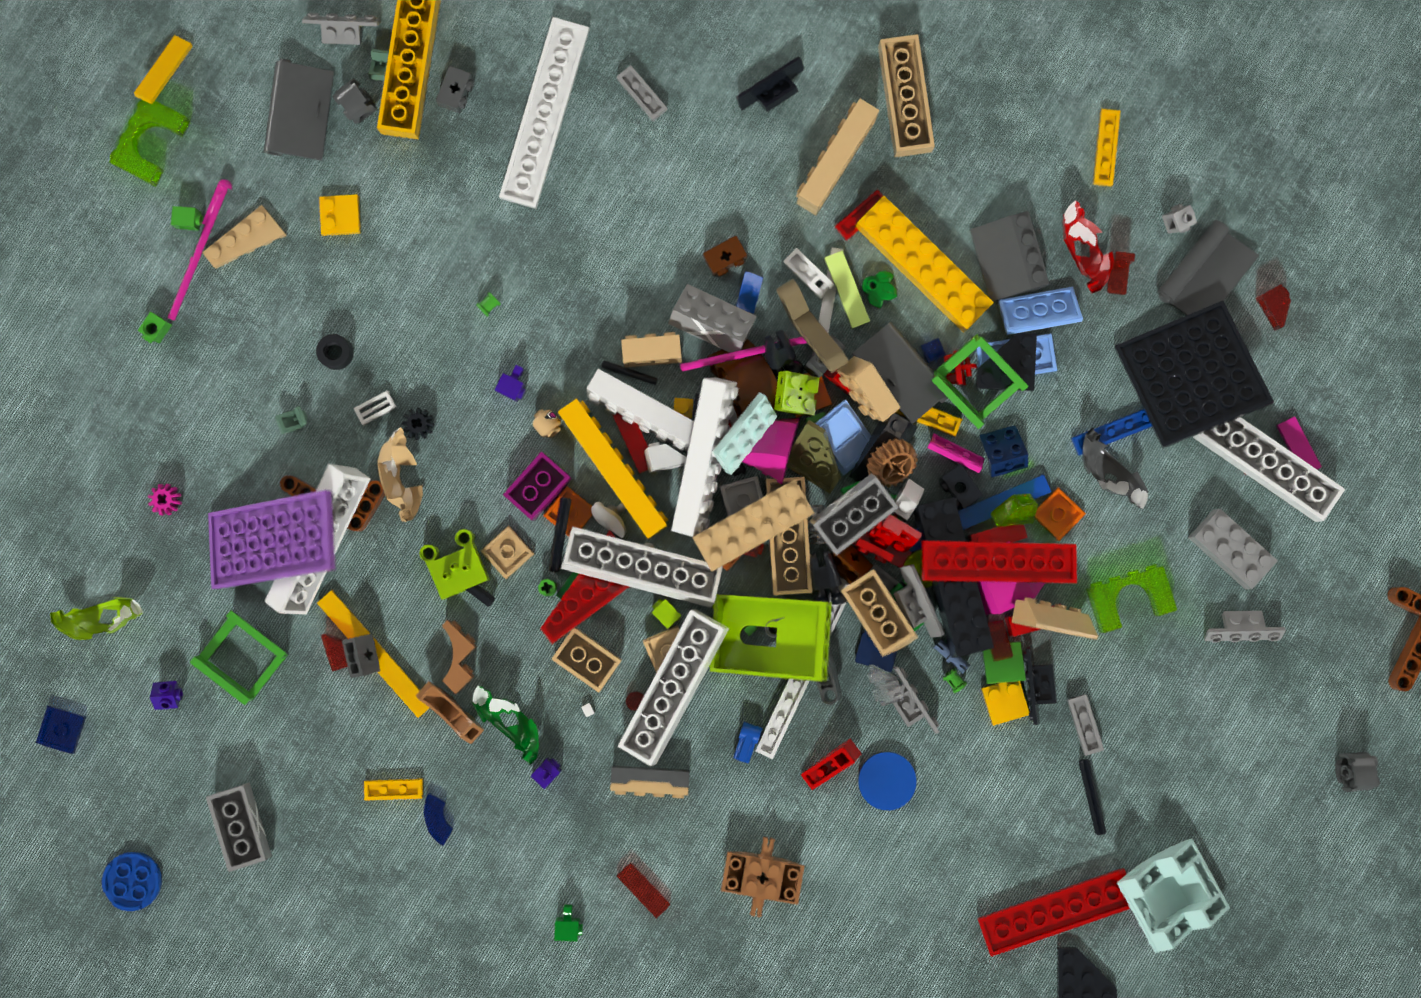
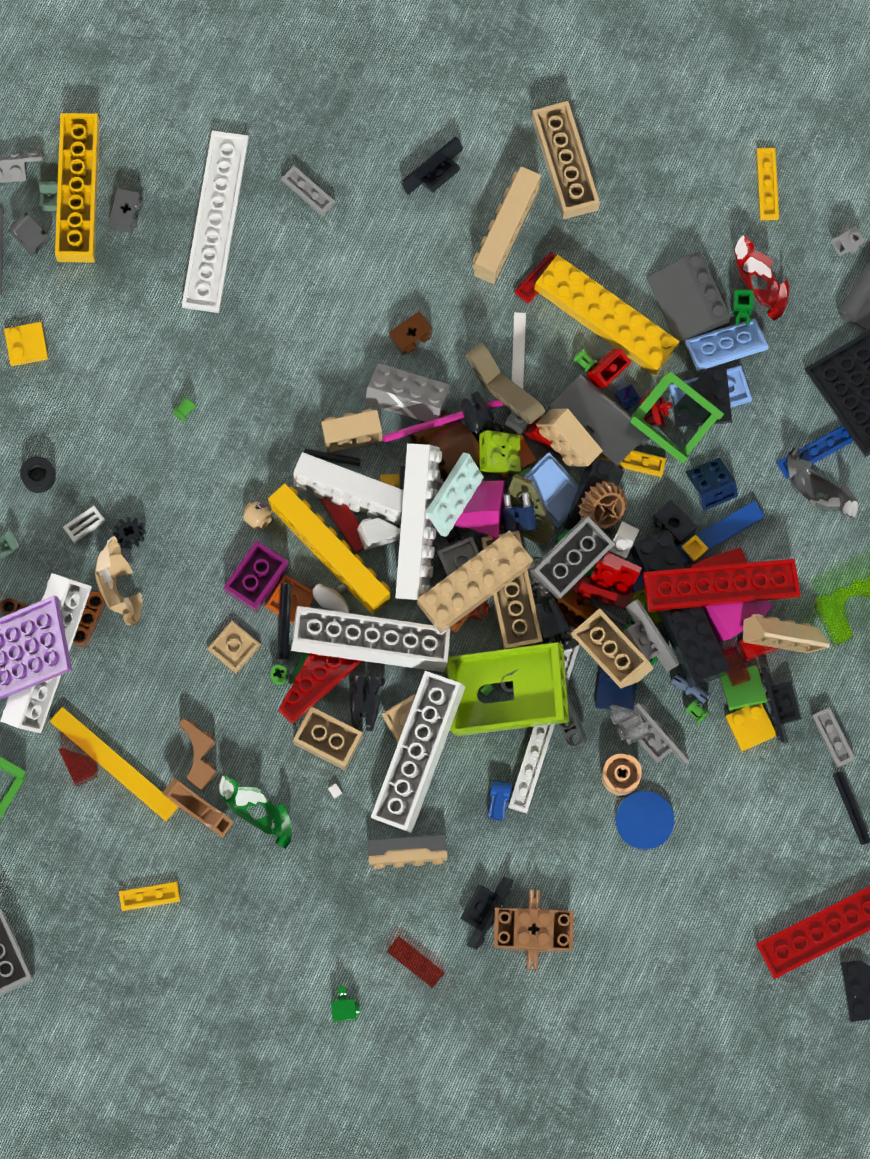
camera: 10 degrees left, 10 degrees down
(361, 655) = (102, 763): dark grey brick -> none
(435, 819) = (195, 920): clear blue tile -> none
(459, 570) = (188, 669): lime piece -> none
(511, 386) = (216, 484): dark purple brick -> none
(546, 772) = (302, 856): dark purple brick -> none
(628, 628) = (365, 705): none -> black piece
(634, 700) = (379, 774): clear red tile -> none
(665, 613) = (400, 683): lime brick -> none
(715, 847) = (481, 910): none -> black bracket
(749, 292) = (439, 363): blue slope -> none
(805, 462) = (518, 517): none -> dark blue piece
(808, 273) = (494, 338): white plate -> none
(831, 764) = (586, 810): red slope -> none
(847, 289) = (535, 350): yellowish green tile -> none
(881, 737) = (621, 763): none -> light nougat brick
(882, 288) = (569, 344): green plate -> none
(890, 305) = (584, 355): none -> bright green bush
(918, 319) = (608, 368): none -> red brick
(956, 453) = (665, 491): dark pink tile -> none
(977, 516) = (694, 548): none -> yellow plate
(1016, 510) = (731, 537): clear neon green slope -> none
(1058, 514) = (774, 537): orange tile -> none
(1063, 272) = (742, 305): none -> green brick
(1119, 275) = (798, 299): clear red bracket -> none

